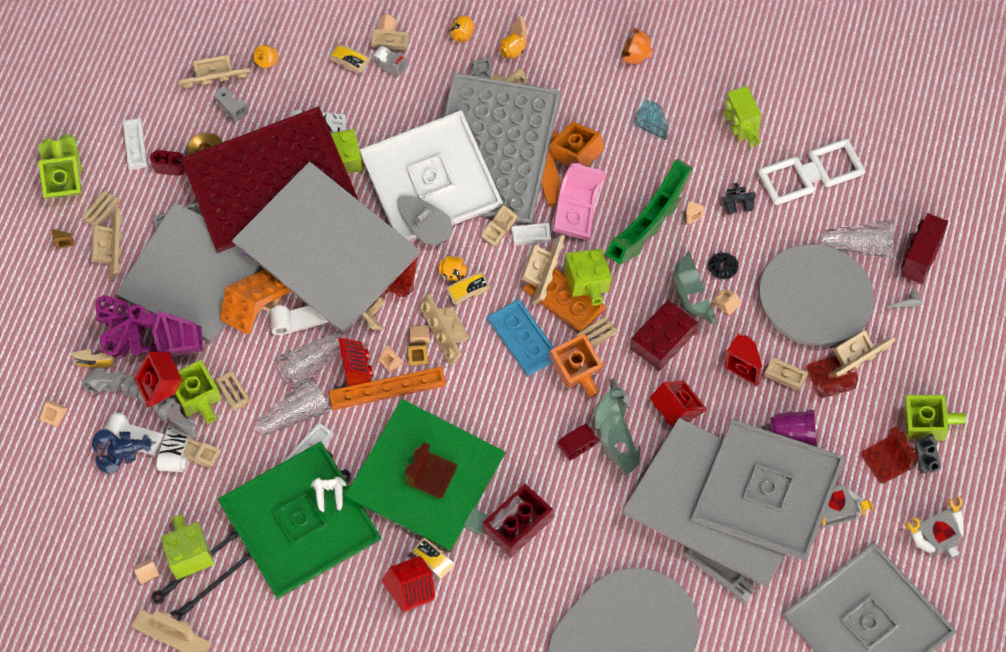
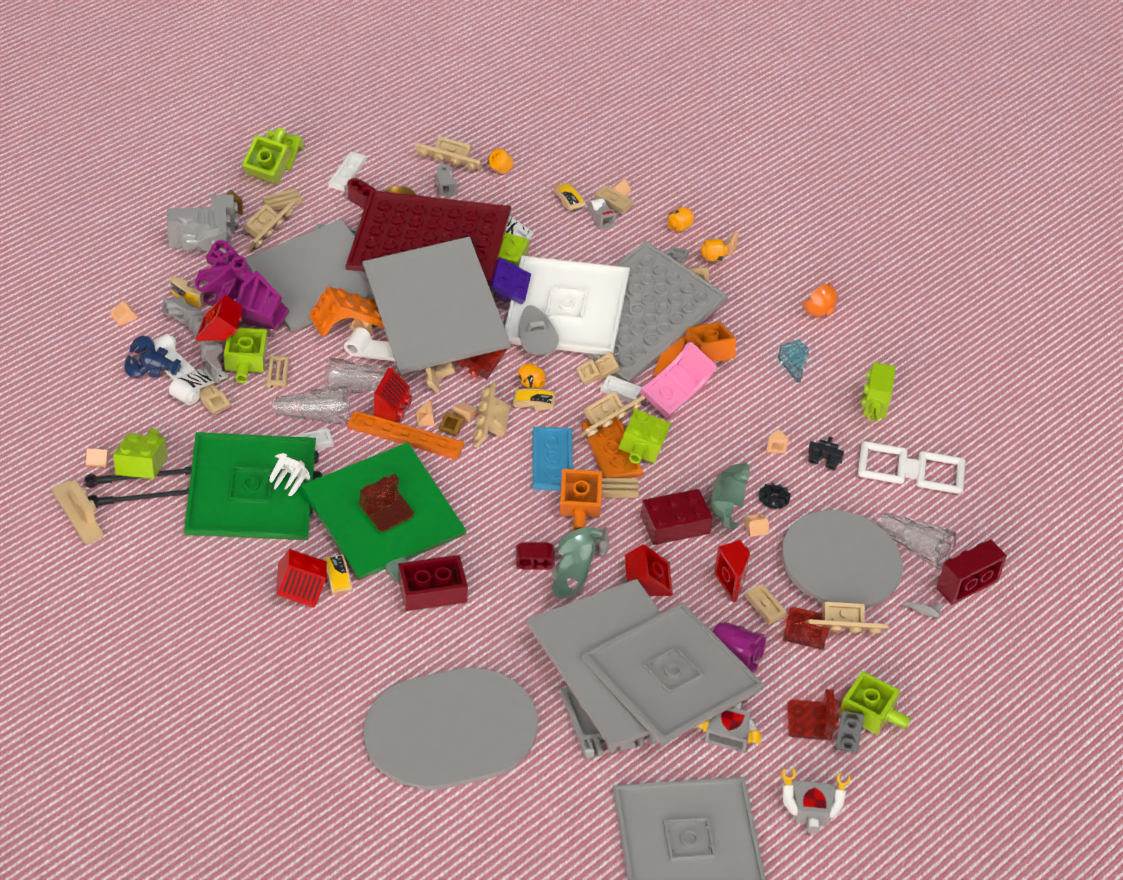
camera: 25 degrees right, 15 degrees down
(62, 285) = (202, 226): none -> light grey brick
(370, 183) = (510, 281): none -> dark purple plate
(647, 224) = (730, 427): green arch -> none

